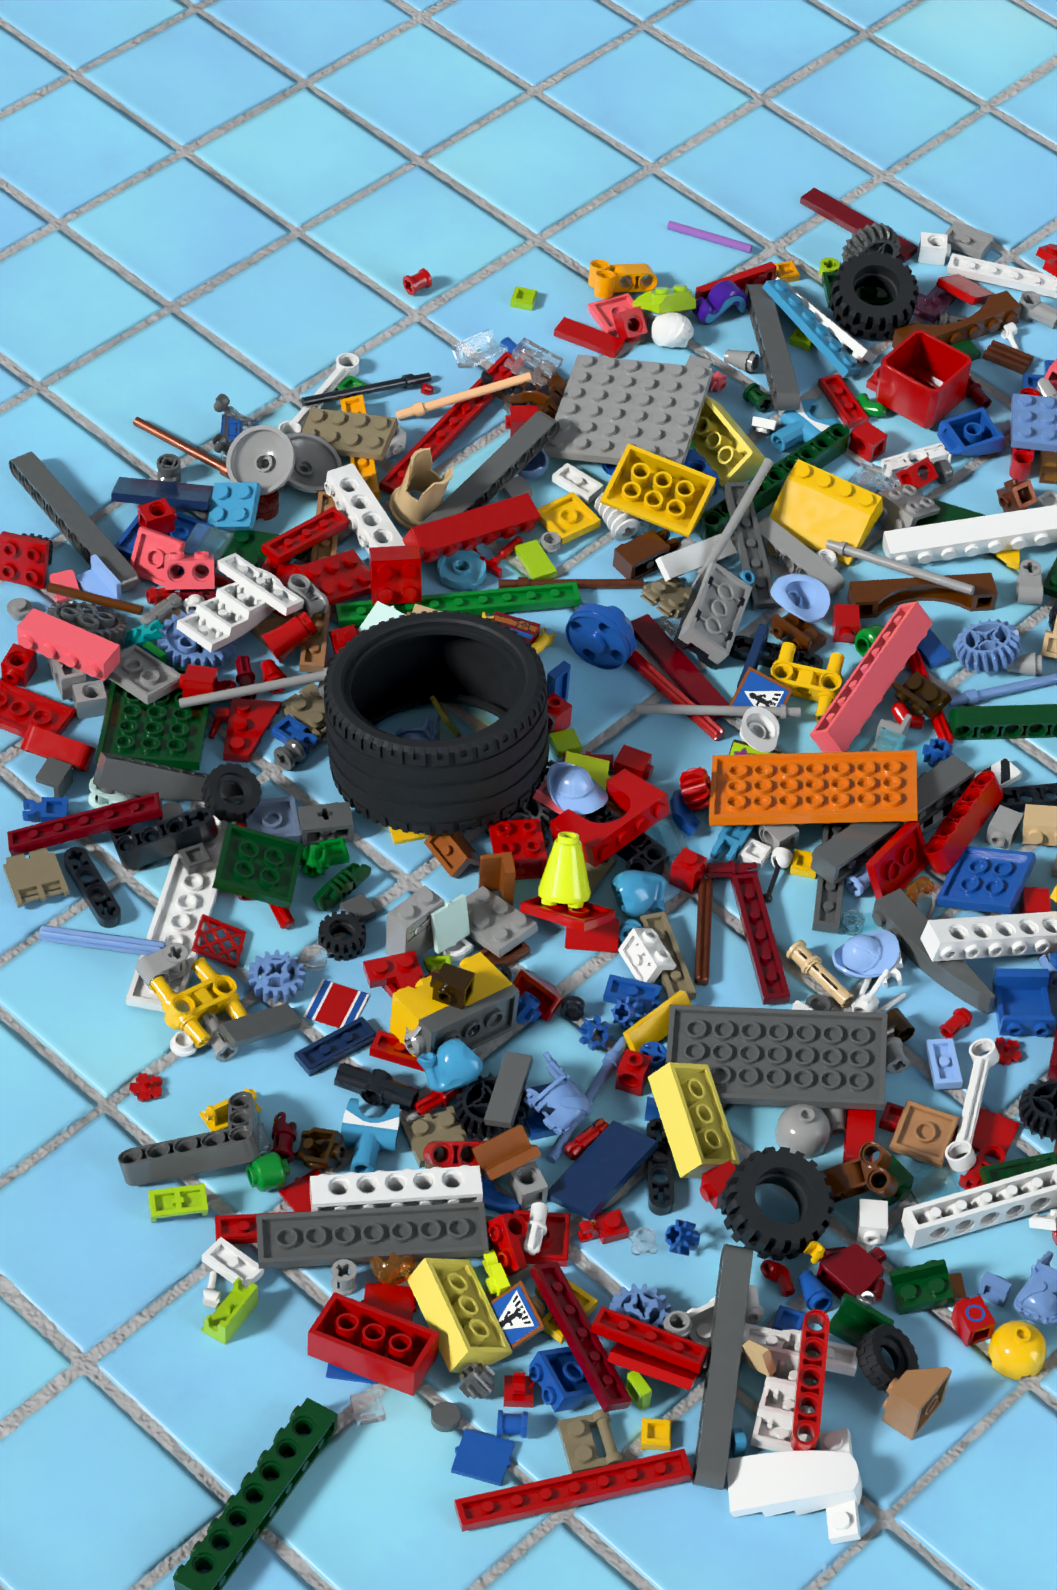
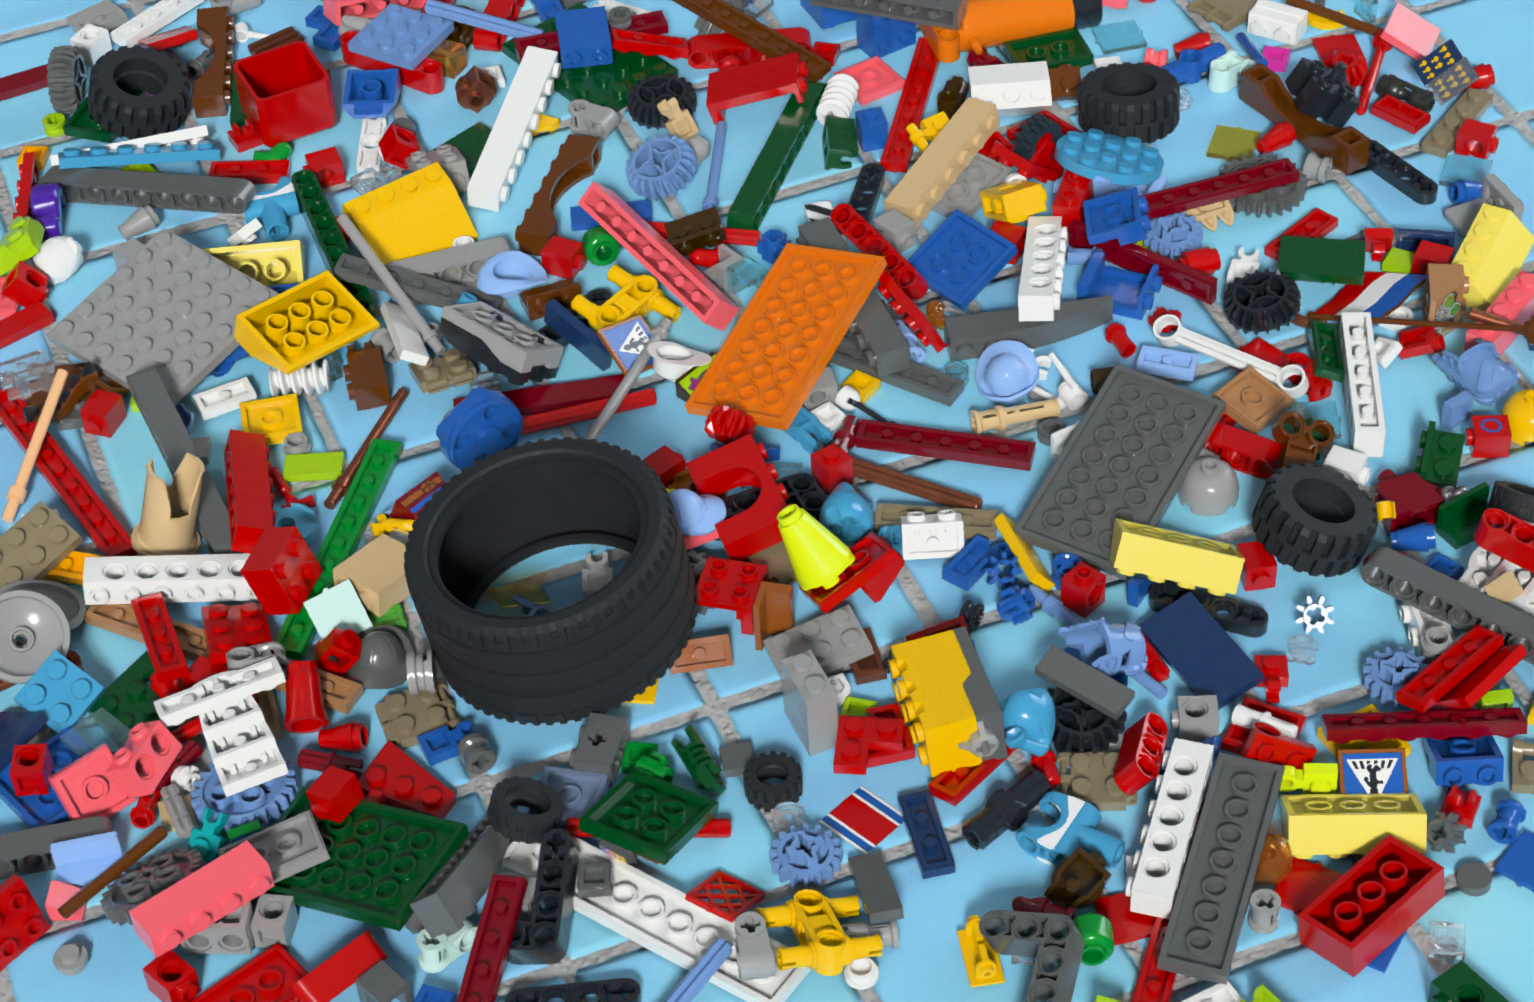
camera: 60 degrees left, 5 degrees down
(252, 689) = (412, 662): light grey bar -> none
(450, 923) = (812, 647): light aqua piece -> none
(452, 985) = (948, 669): dark brown brick -> none
(505, 1153) = (1167, 712): dark orange panel -> none
(757, 397) = (202, 227): dark green bush -> none
(843, 548) = (465, 225): light grey bar -> none

